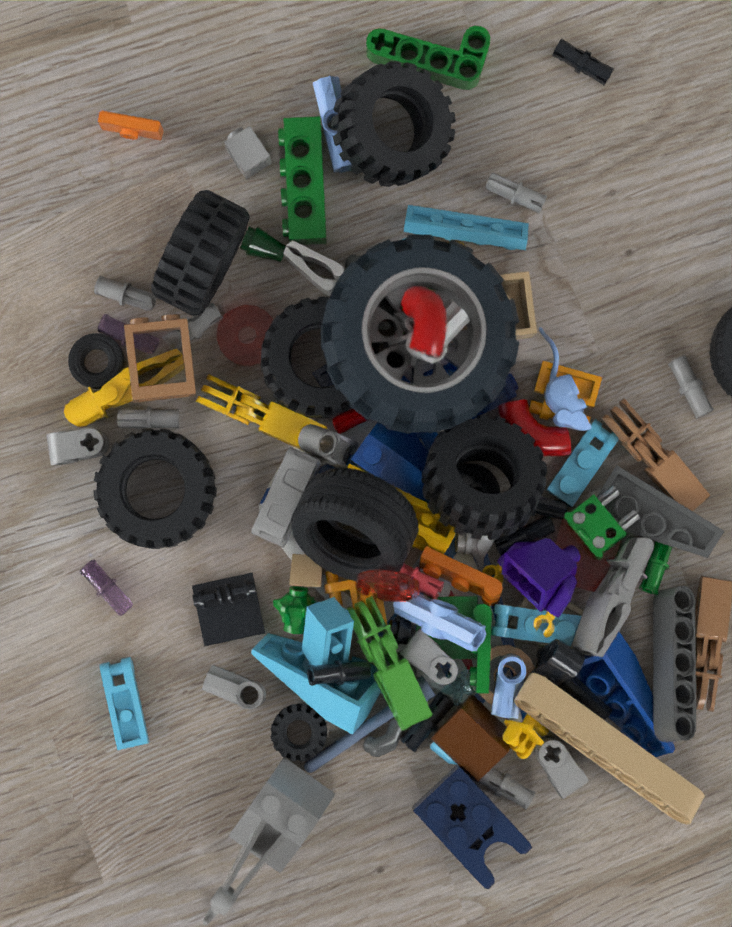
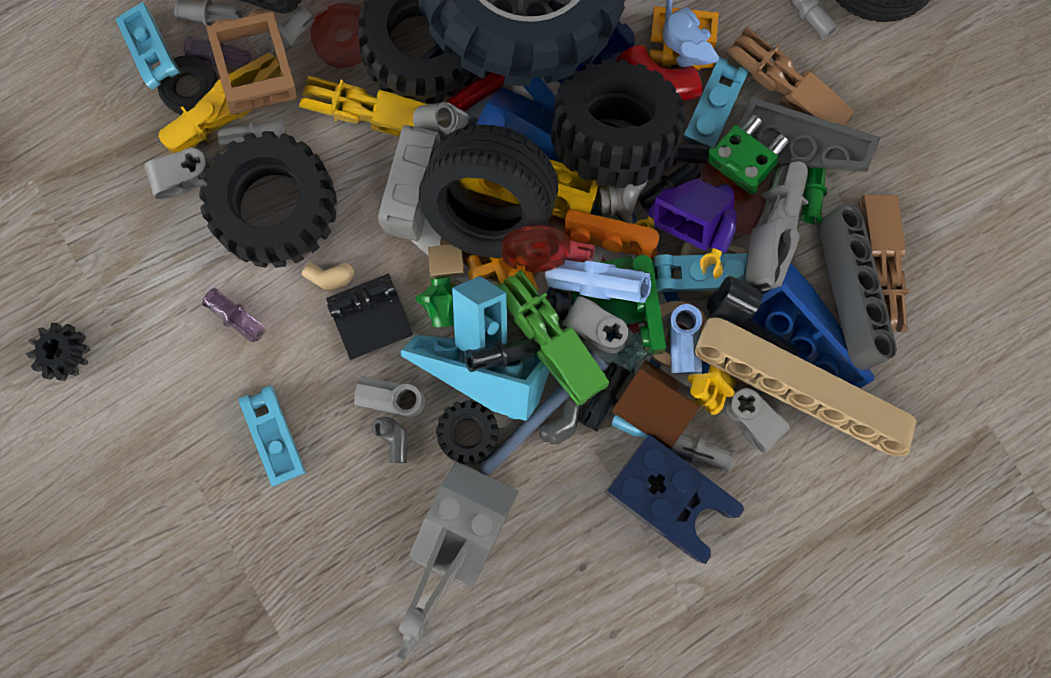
camera: 15 degrees left, 5 degrees down
(64, 318) = (147, 45): none -> medium azure plate
(198, 568) = (330, 278): none -> tan arm
(233, 722) = (394, 435): none -> dark grey arm

